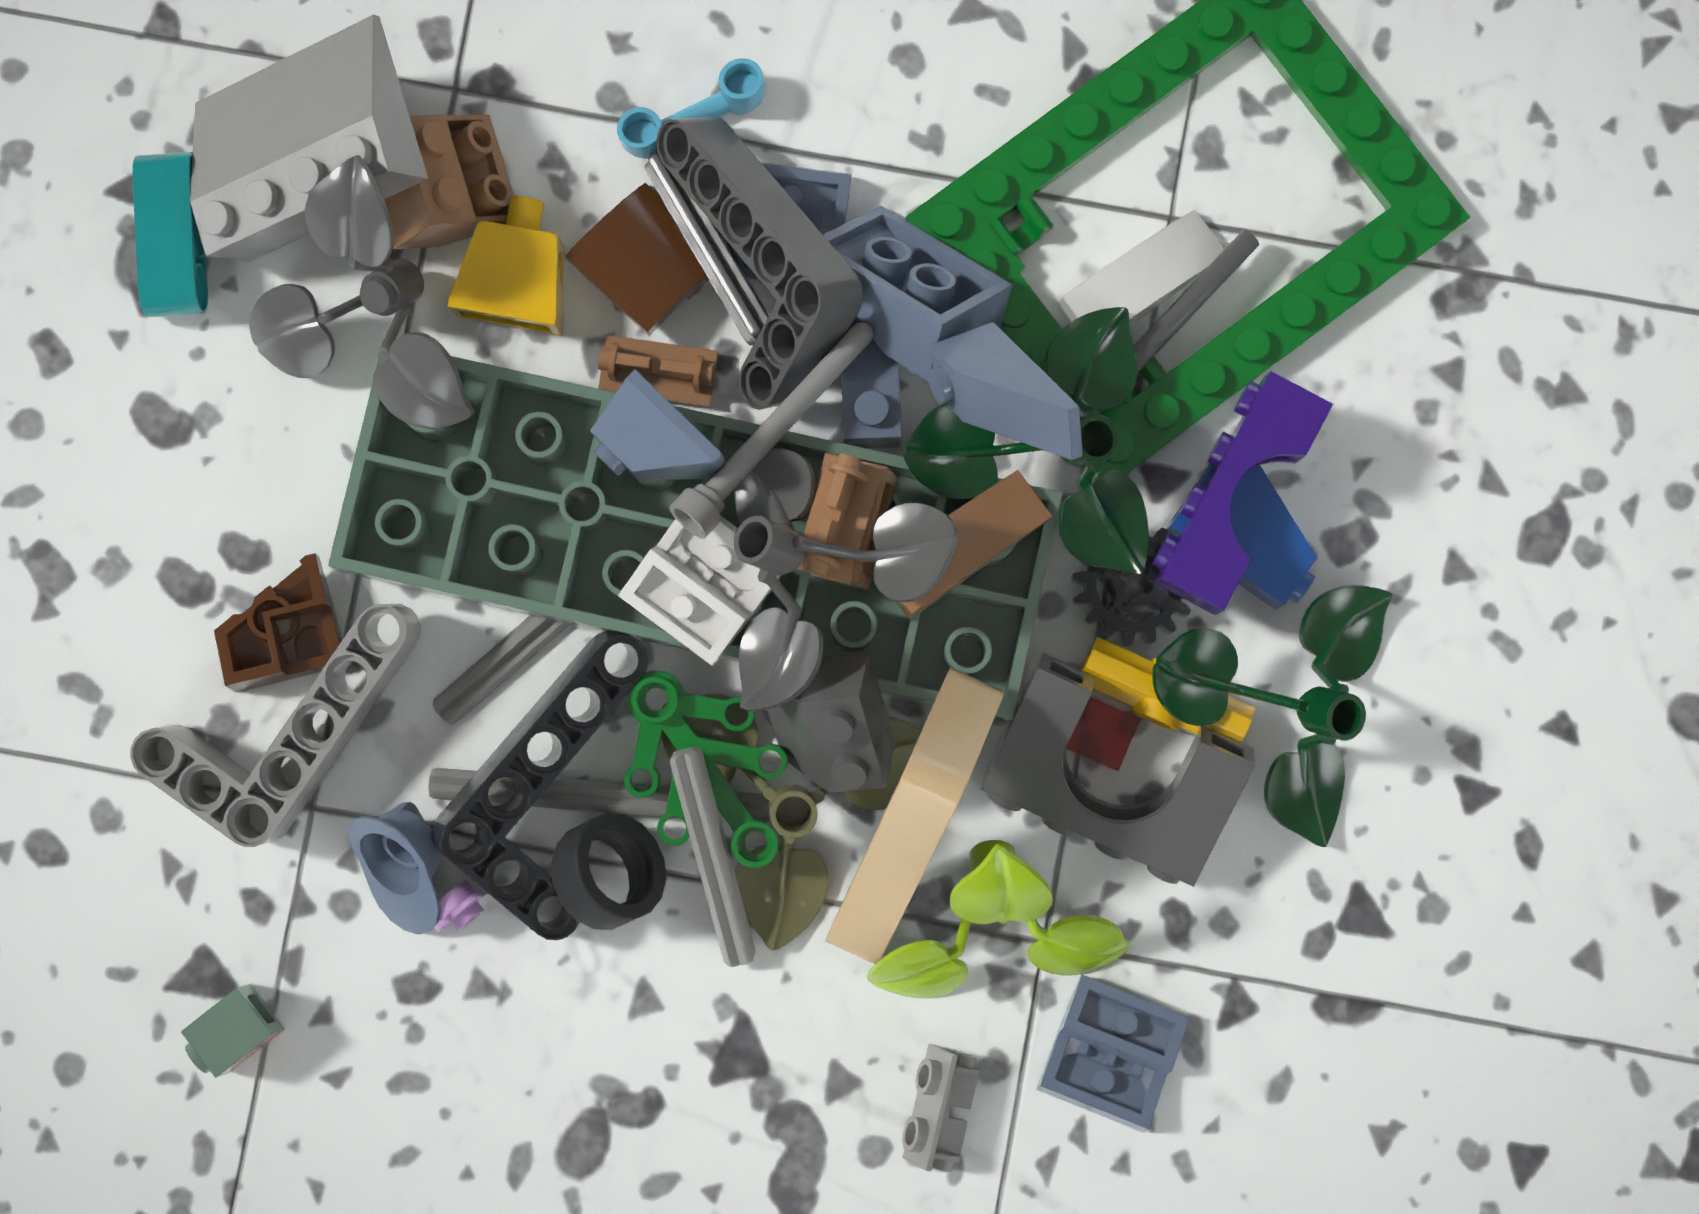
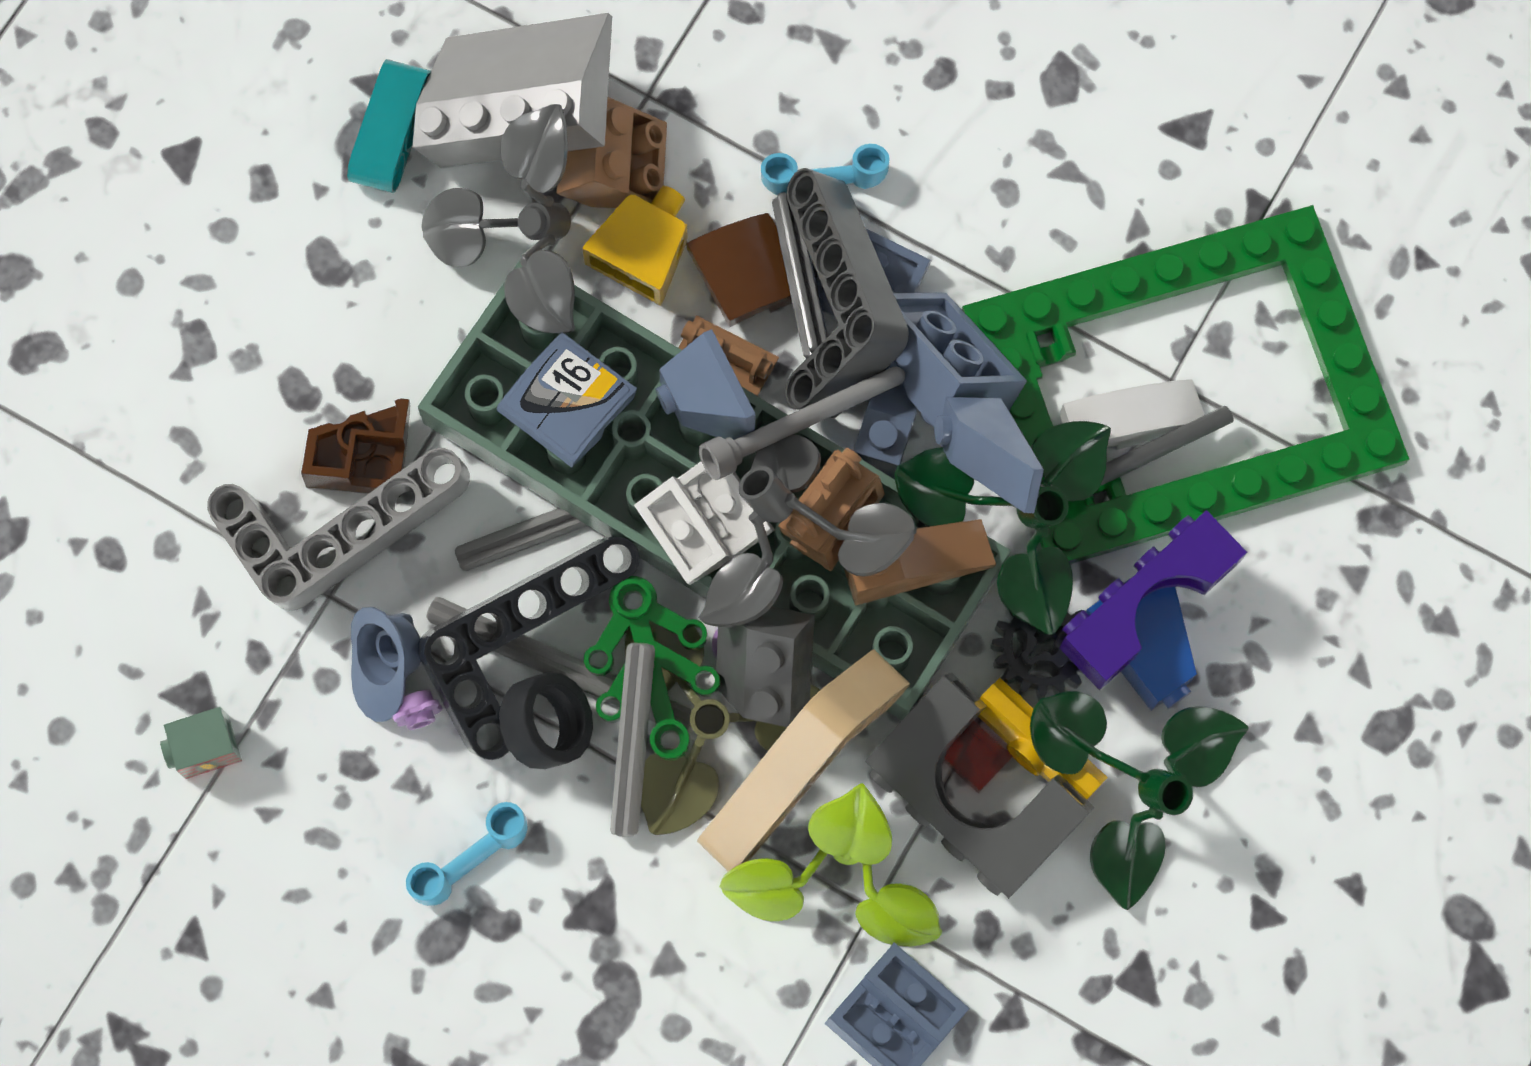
camera: 15 degrees right, 10 degrees down
(496, 499) = (566, 399): none -> sand blue slope
(550, 1096) = (433, 885): none -> medium azure bar
(930, 1134) = (753, 989): light grey hinge -> none

